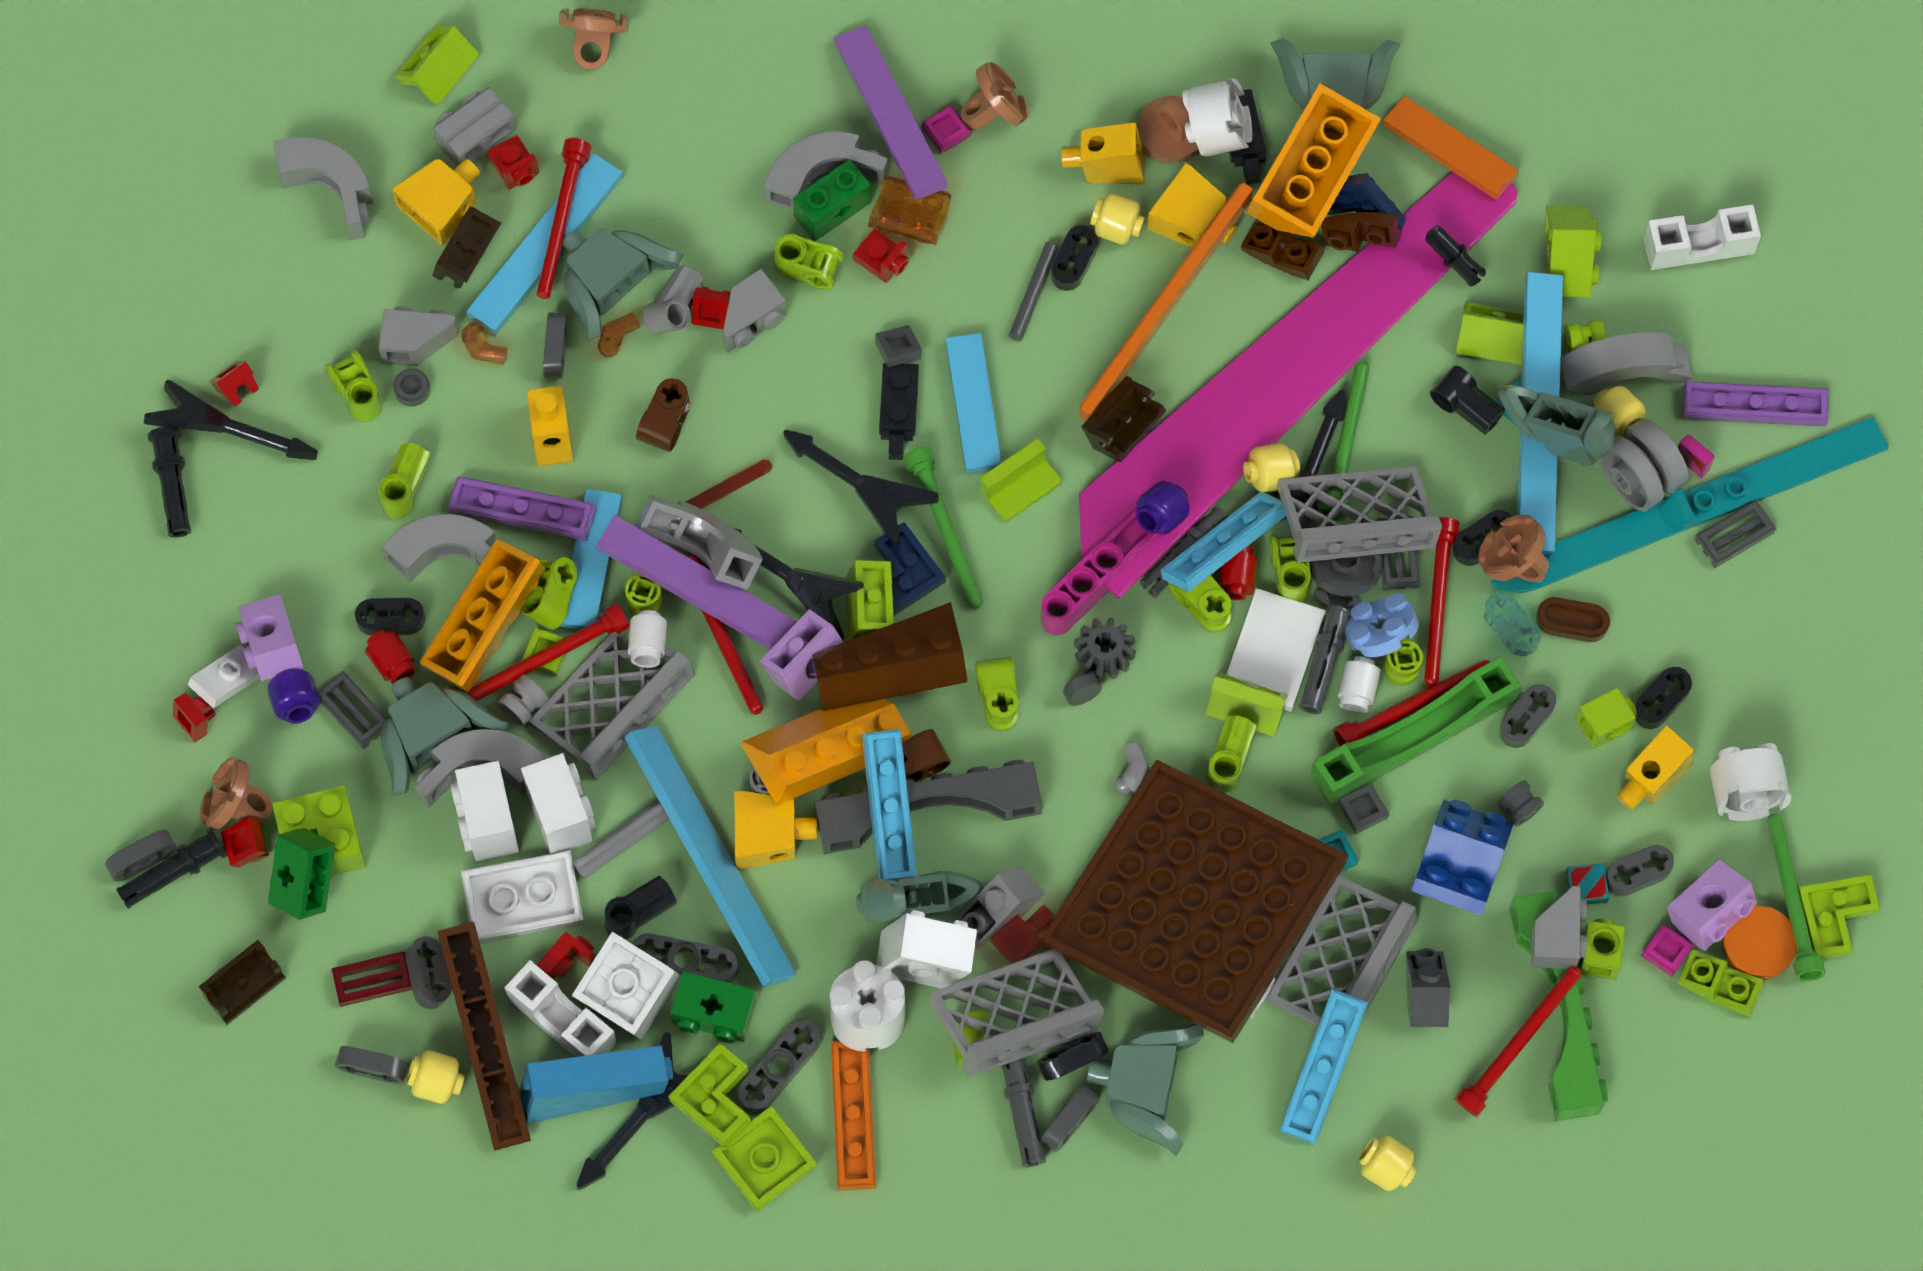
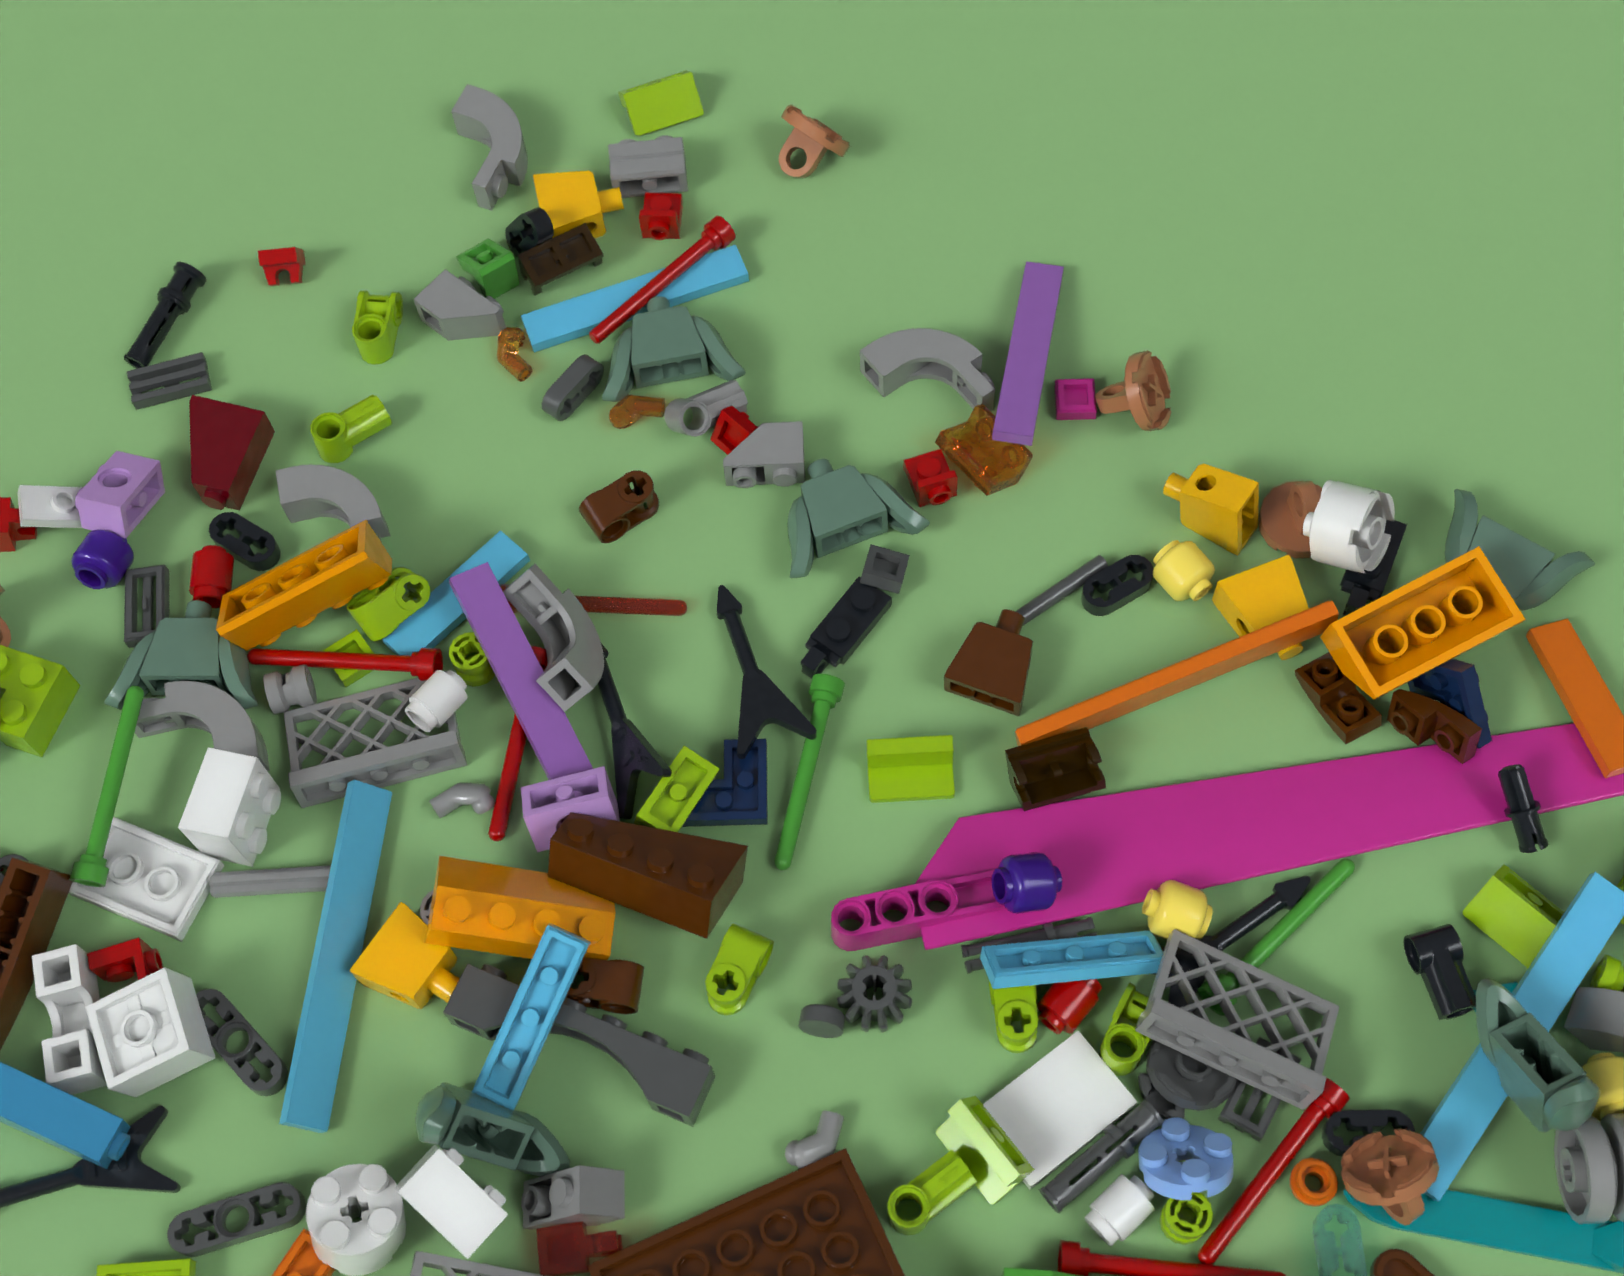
camera: 40 degrees right, 5 degrees down
(199, 415) = (232, 276): black piece -> none
(208, 521) = (169, 375): none -> dark grey tile
(316, 555) = (226, 450): none -> dark red slope
(409, 283) = (491, 267): none -> bright green slope
(411, 387) = (426, 354): dark grey tile -> none
(430, 243) = (529, 231): none -> black beam
(486, 909) = (92, 868): none -> bright green piece
(487, 819) = (159, 769): white brick -> none
(522, 508) = (431, 514): medium lavender tile -> none
(548, 421) = (508, 451): yellow torso -> none
(640, 905) = (234, 959): black piece -> none
(697, 995) = (240, 1123): green brick -> none
(704, 1094) = (130, 1202): lime plate -> none
(712, 694) = (463, 794): none -> light grey arm
(810, 260) = (858, 446): lime piece -> none
(832, 200) = (917, 400): green brick -> none
(836, 320) = (842, 510): none -> sand green torso
(973, 403) = (919, 666): medium azure tile -> none
(1029, 369) = (993, 664): none -> reddish brown torso
(1473, 581) = (1323, 1172): none -> orange plate

